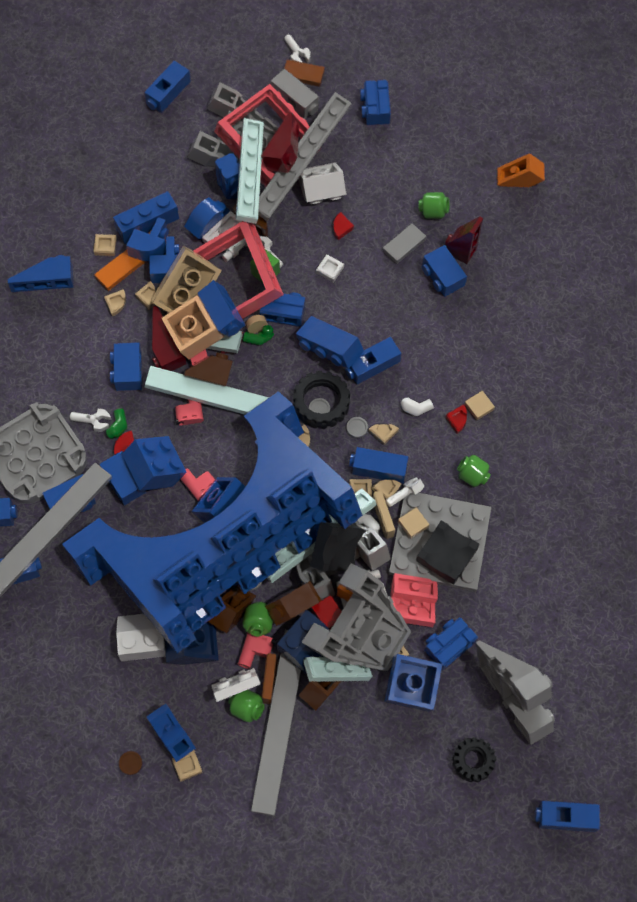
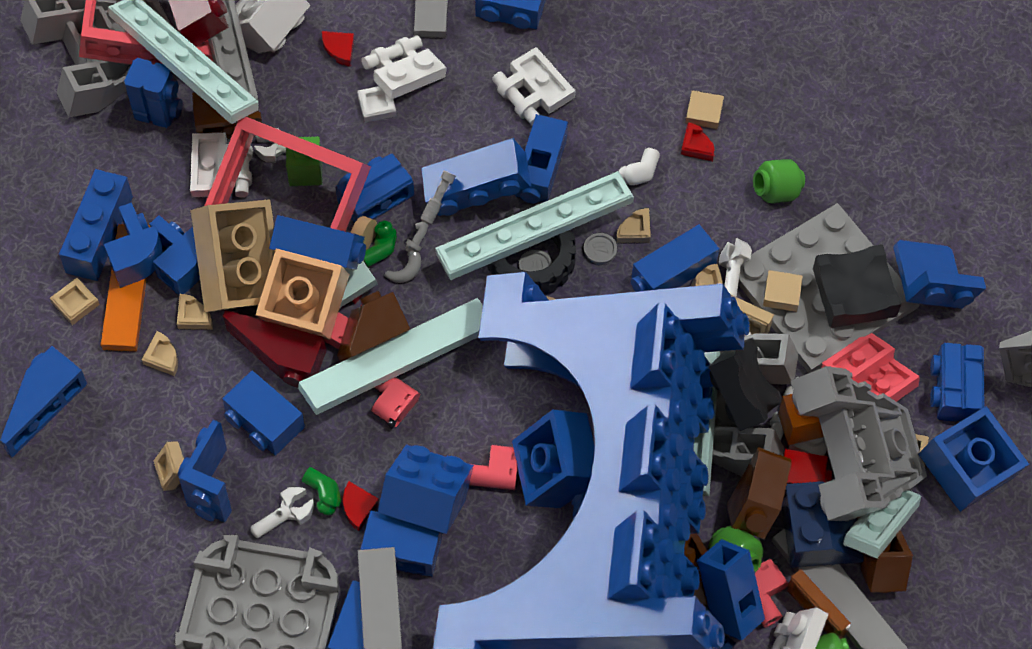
camera: 45 degrees left, 5 degrees down
(65, 354) = (168, 465): none -> tan tile
(71, 367) = (195, 474): none -> blue bracket
(205, 217) = (172, 164): blue brick -> none
(232, 632) = (731, 588): none -> blue brick
(270, 350) = (432, 208): none -> light grey piece
(332, 388) = (534, 225): none -> light aqua tile
(359, 266) = (408, 73): none -> white plate
(416, 322) = (540, 78): none -> white plate
(495, 581) = (932, 276): none -> blue bracket

